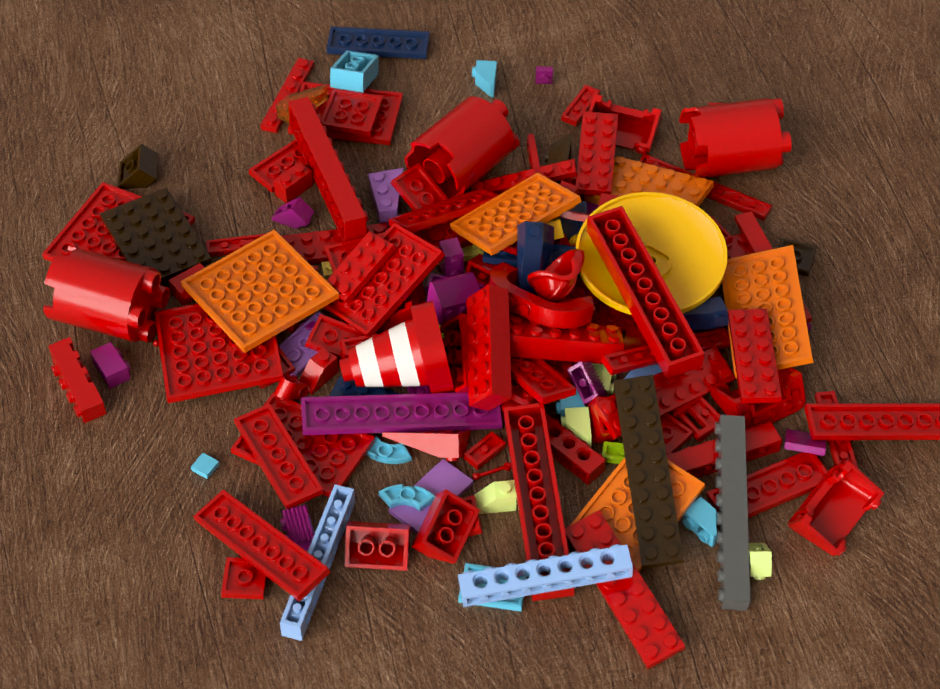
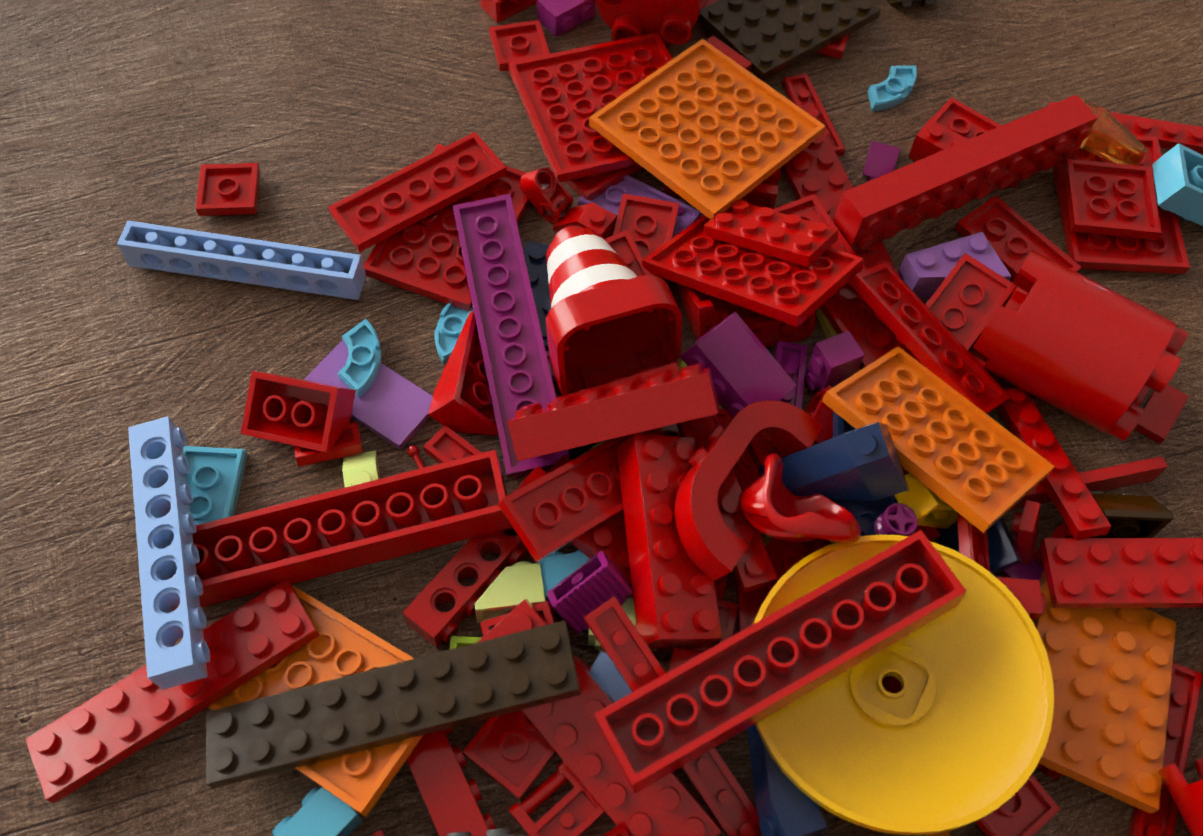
camera: 80 degrees right, 10 degrees up
(140, 397) = (517, 42): none -> red plate
(205, 465) = (415, 126): medium azure tile -> none
(228, 198) = (893, 89): none -> medium azure tile
(262, 545) = (256, 190): red plate -> none
(298, 526) = (308, 230): magenta brick -> none
(377, 545) = (278, 329): red slope -> none
(378, 159) = (1011, 236): none -> red plate
(563, 242) = (901, 518): none -> magenta wheel

